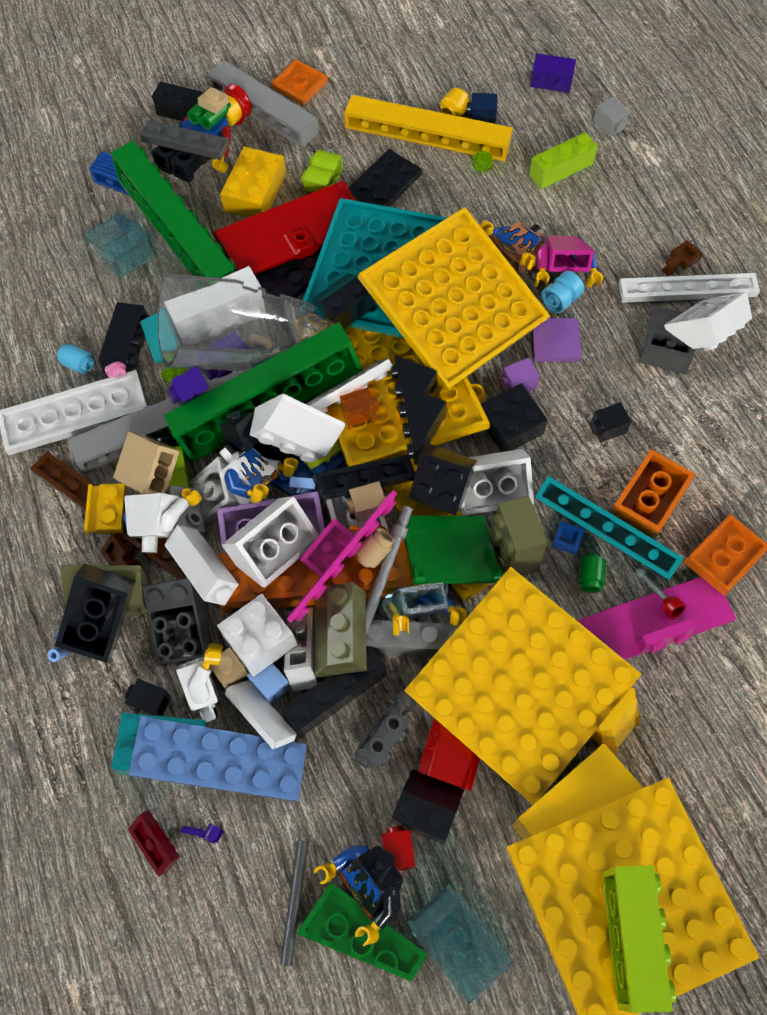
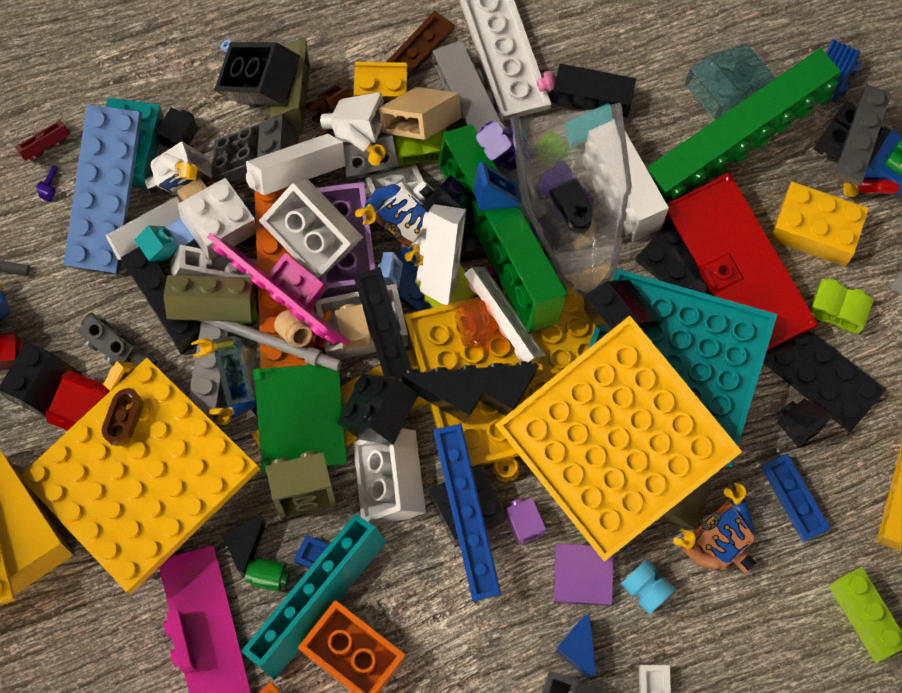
camera: 90 degrees right, 5 degrees up
(75, 358) = (569, 44): medium azure brick -> none
(240, 383) = (494, 189): none -> blue slope
(243, 335) = (571, 201): none -> black piece
(281, 694) = (156, 243): none -> teal plate
(421, 717) = (118, 373): none -> yellow plate
(422, 190) = (803, 420): none -> black slope
(474, 695) = (121, 418): none -> reddish brown plate
(482, 161) = (868, 510): clear neon green plate -> none
(482, 201) = (795, 498): none -> blue plate
(524, 408) = (467, 512): none -> blue tile
(566, 254) = (702, 595): dark pink torso -> none
(567, 593) = (243, 542): none -> black slope
(610, 422) = (458, 621): black brick -> none
(614, 337) = (578, 648): none -> blue slope
(618, 722) = (94, 577): yellow slope -> none
(671, 605) = (216, 654): red hinge -> none

